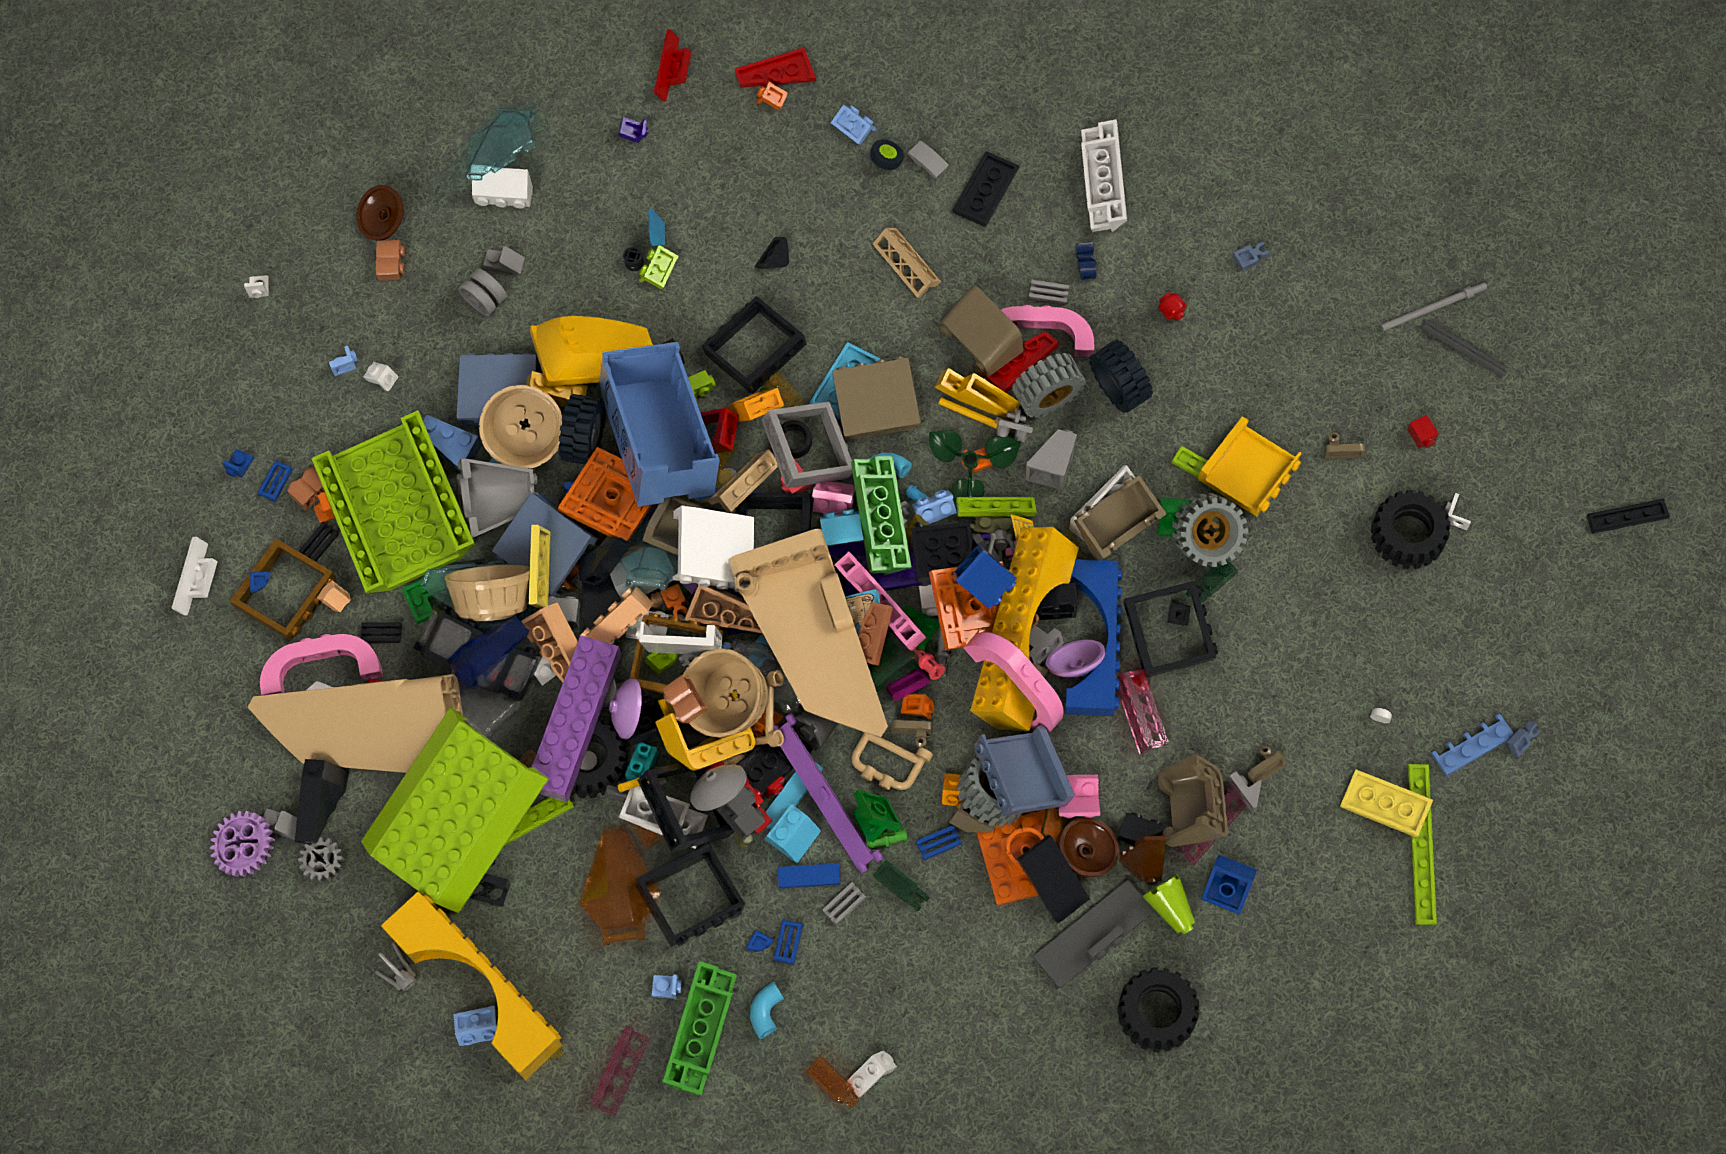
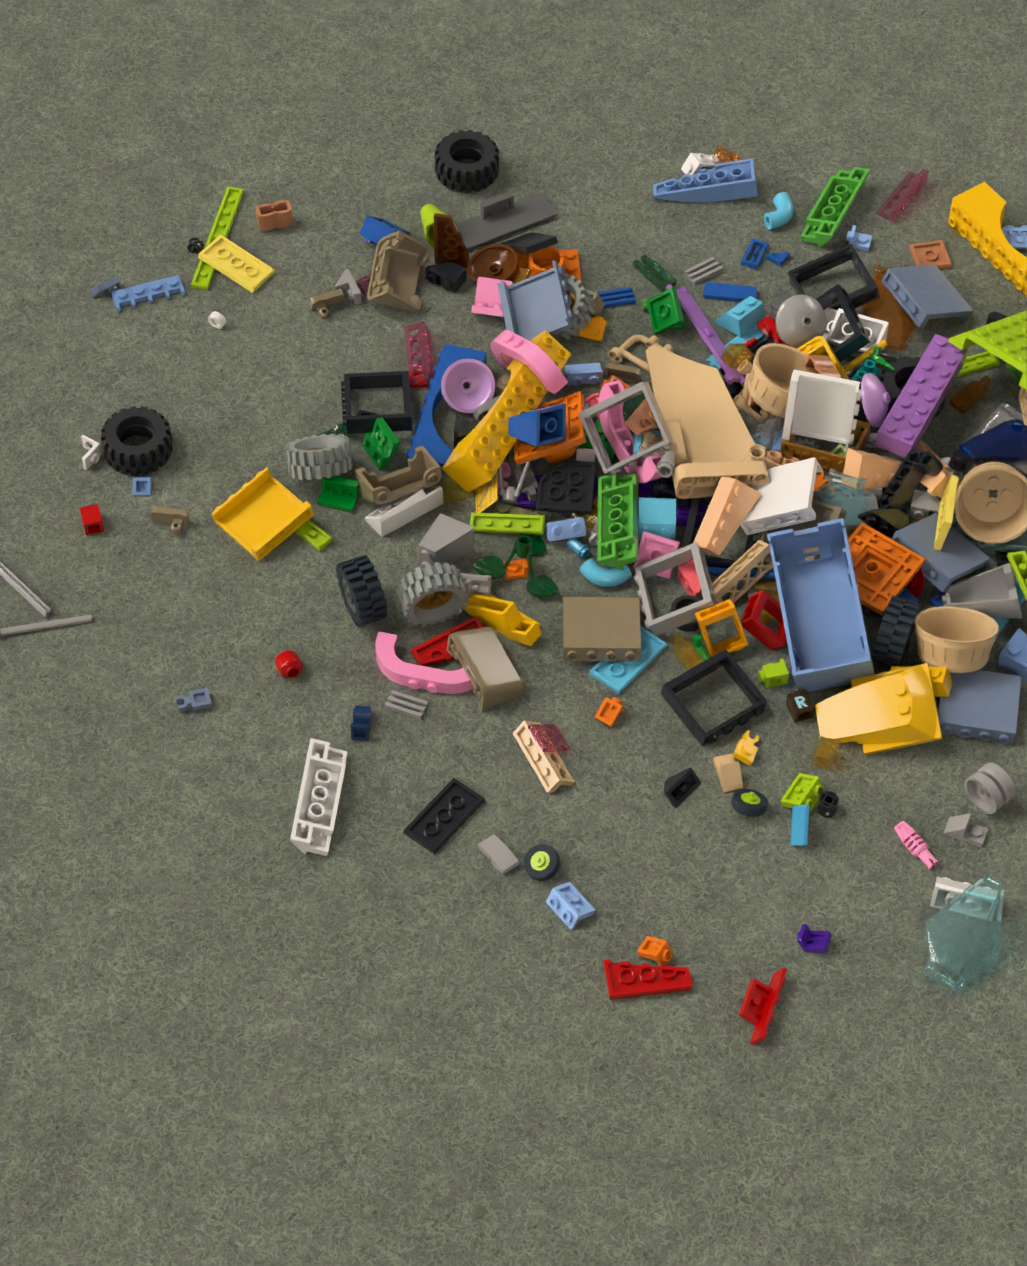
camera: 175 degrees left, 15 degrees down
(549, 237) = (915, 844): none -> bright pink hinge
(571, 626) = (908, 477): none -> black beam
(578, 893) = (925, 294): none -> sand blue panel
(580, 979) = (930, 254): none -> nougat tile
(623, 767) = (880, 360): none -> green bar
(640, 310) = (825, 753): none -> clear yellow brick
(706, 246) = (749, 802): none -> black wheel
(715, 303) = (745, 749): none -> yellow plate
(731, 279) = (728, 772): none -> tan slope
(768, 517) = (725, 514): none -> light nougat wedge
(785, 755) = (736, 354): none -> clear yellow brick
(837, 556) = (666, 465): none -> light grey cone
(851, 318) = (609, 711): none -> orange bracket
(852, 1036) = (721, 183): none -> medium blue wedge
(896, 276) = (563, 747): none -> clear pink window
(924, 603) = (587, 415): none -> light grey window
(954, 722) = (584, 374): none -> light blue bracket
(1151, 572) = (381, 444): none -> green slope
(1368, 876) = (274, 215): none -> nougat brick
(1388, 488) = (142, 486): none -> medium blue slope
(1442, 821) = (195, 245): none -> black bush

